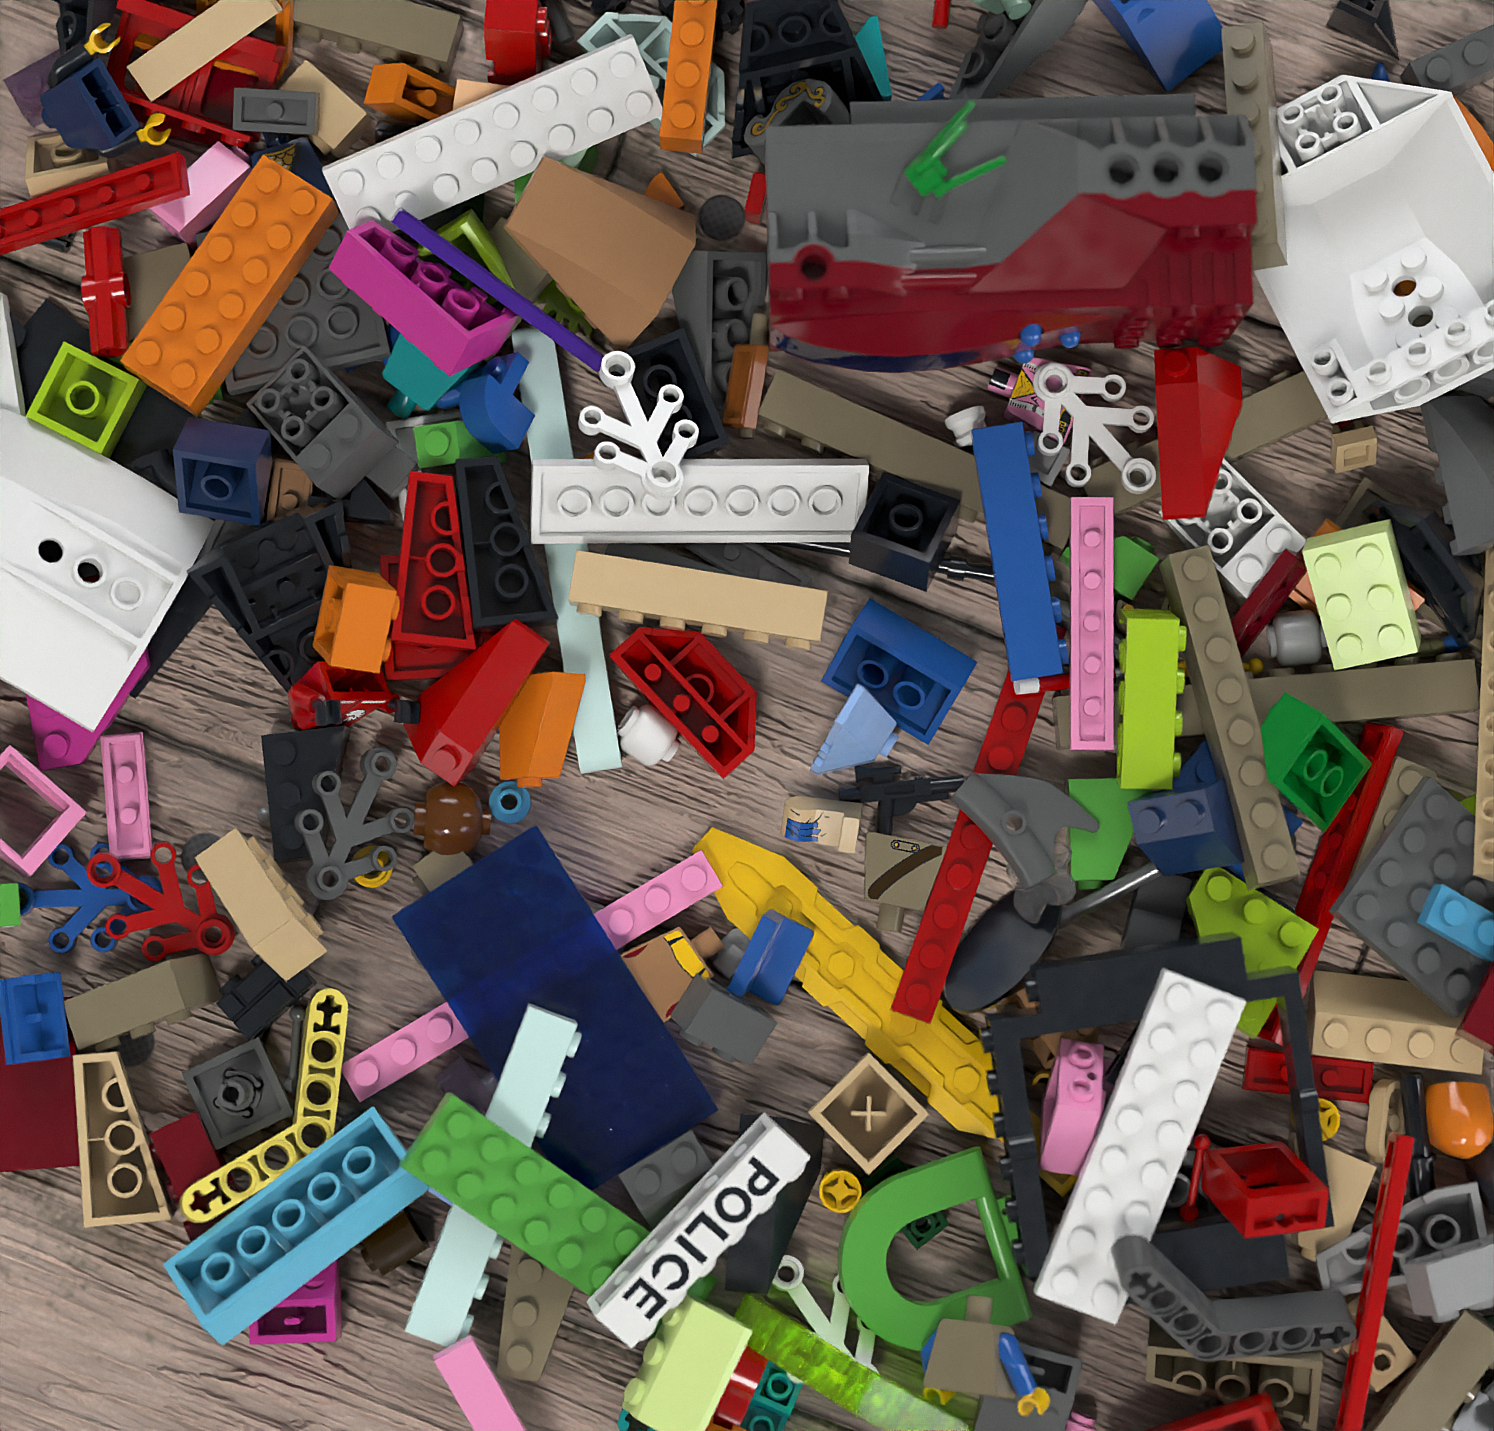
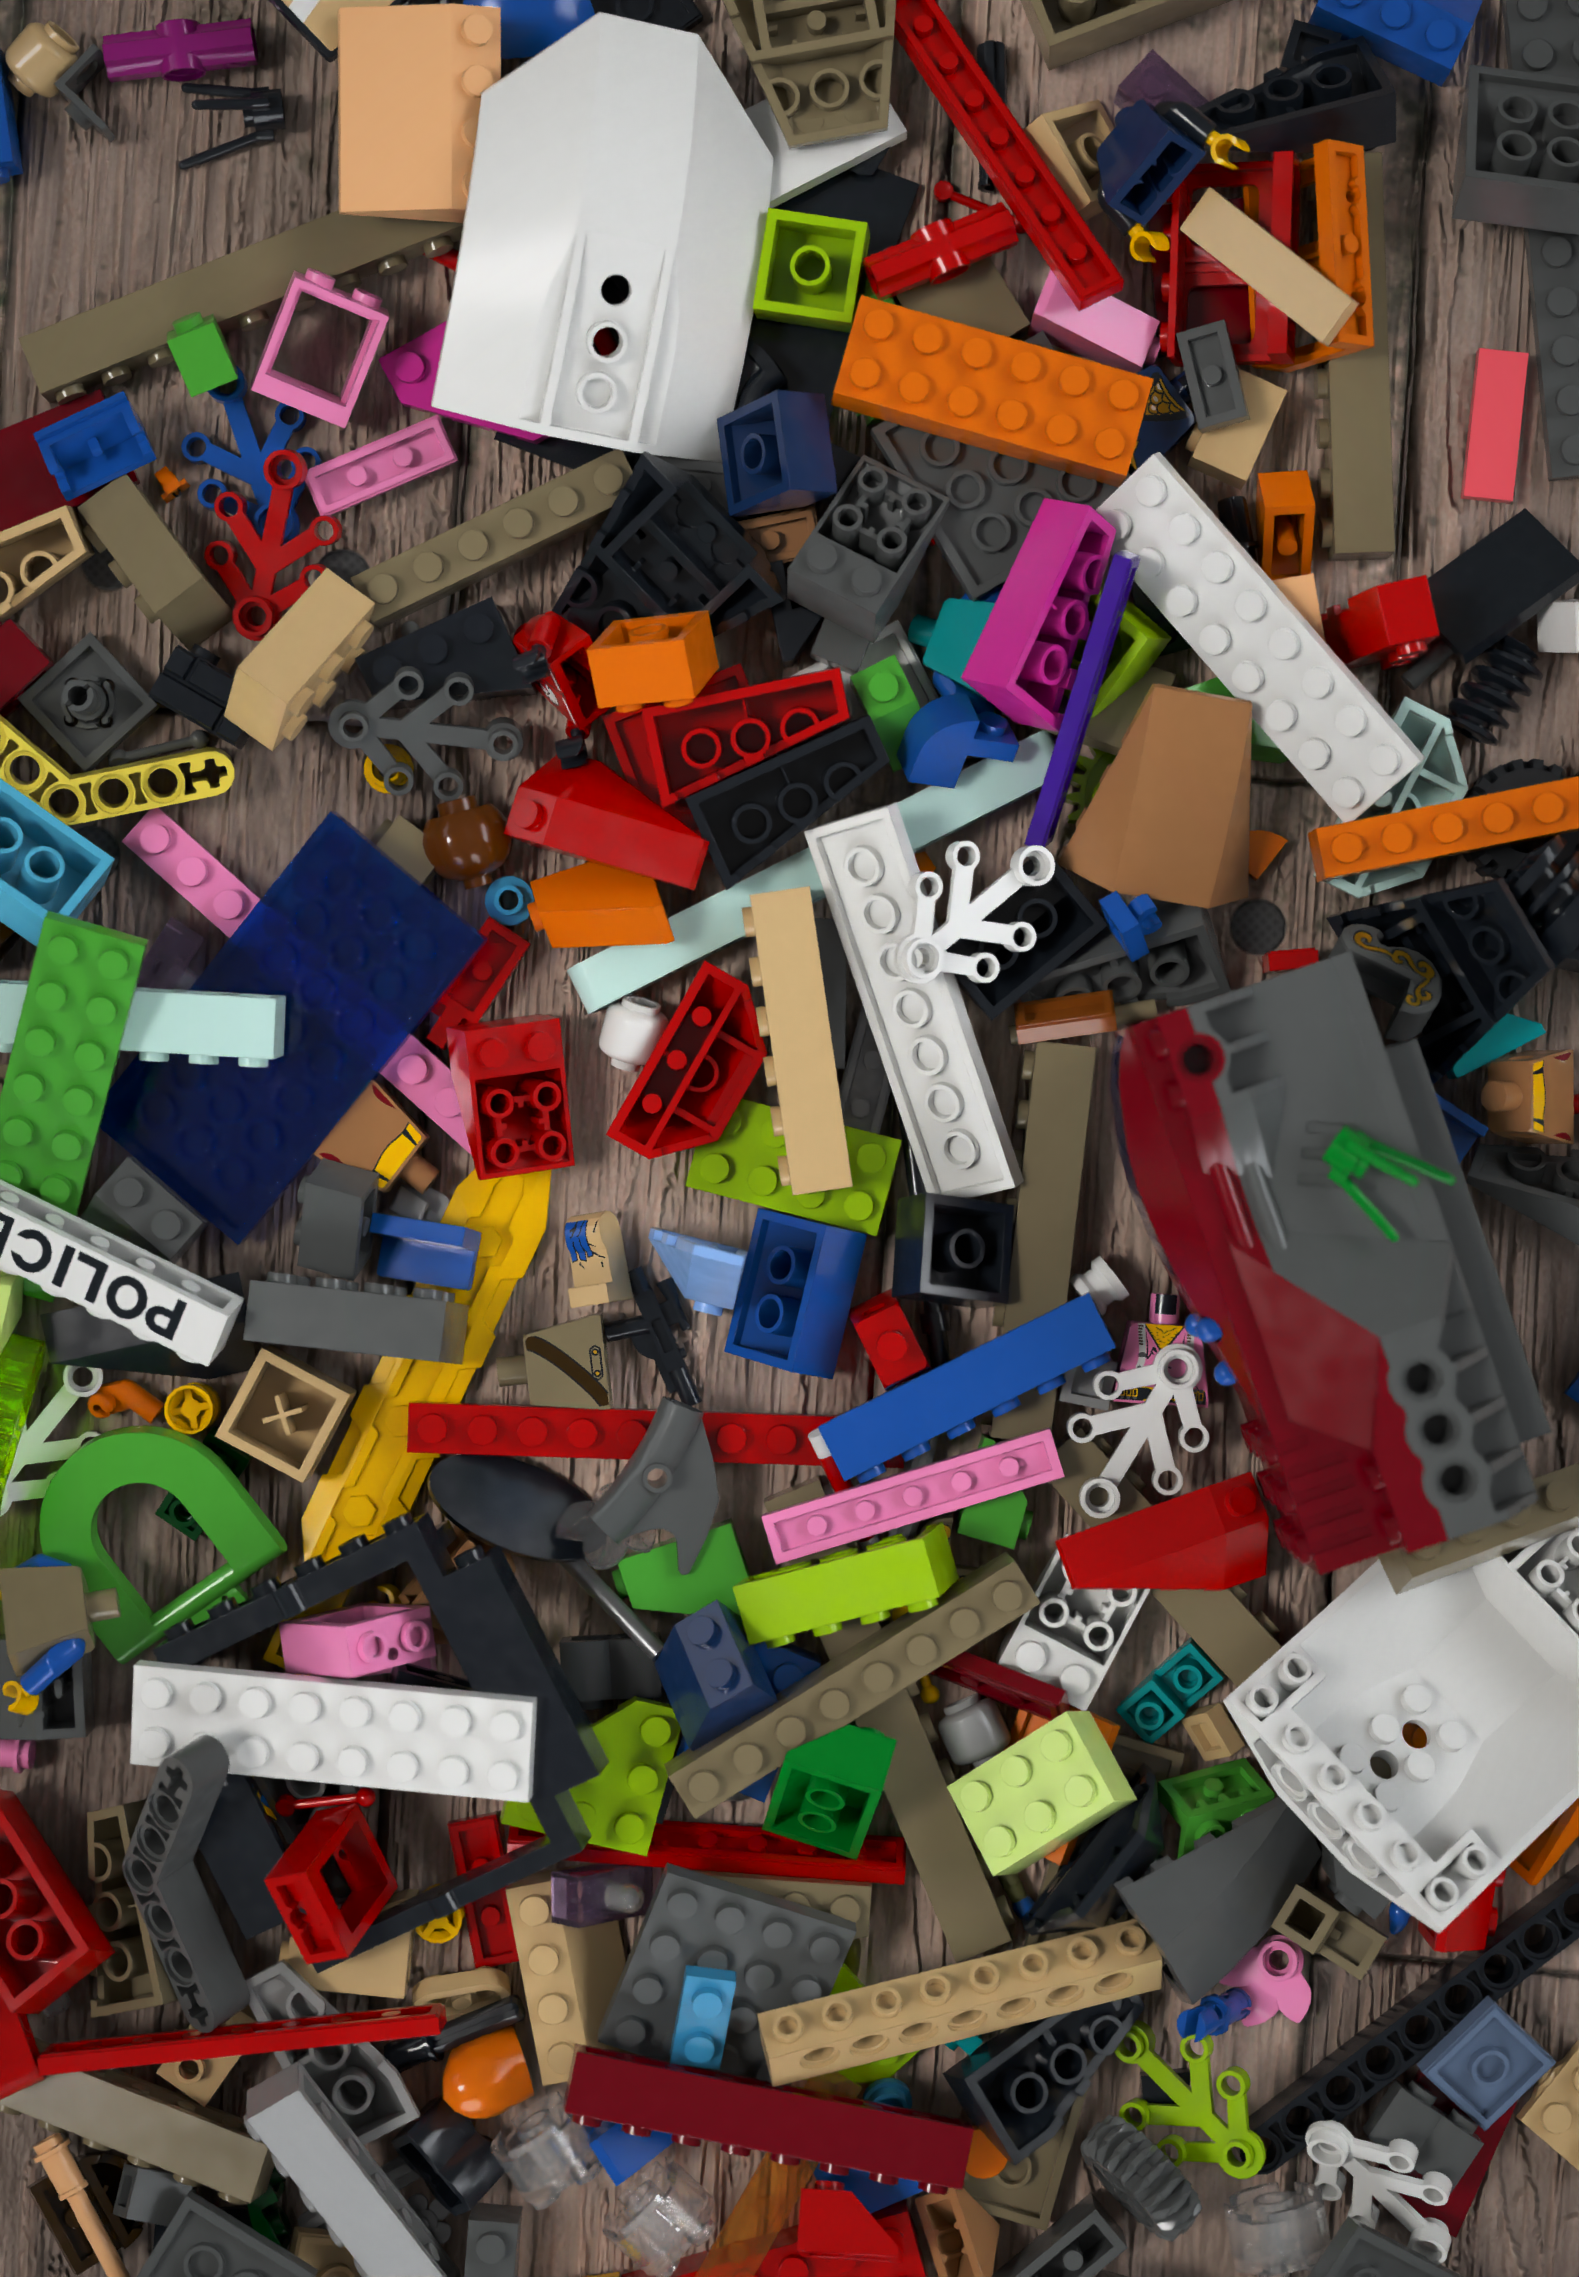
camera: 70 degrees right, 5 degrees up
(59, 280) = (944, 192): none -> red hinge
(84, 971) = (170, 484): none -> orange piece
(215, 717) = (494, 539): none -> dark tan brick
(570, 847) = (479, 982): none -> red hinge
(666, 845) = (512, 1094): none -> red slope
(687, 307) = (1131, 922): none -> blue tile
(788, 675) = (747, 1169): none -> lime plate
(811, 1029) = (346, 1320): none -> dark grey brick
(812, 1245) = (122, 1396): none -> orange arm
(925, 42) = (1531, 1096): none -> medium nougat torso
(960, 606) = (888, 1340): none -> red torso
(1310, 474) = (1169, 1691): none -> teal slope
(1338, 978) = (600, 1894): none -> clear purple piece
(1408, 463) = (1212, 1799): none -> bright green bracket

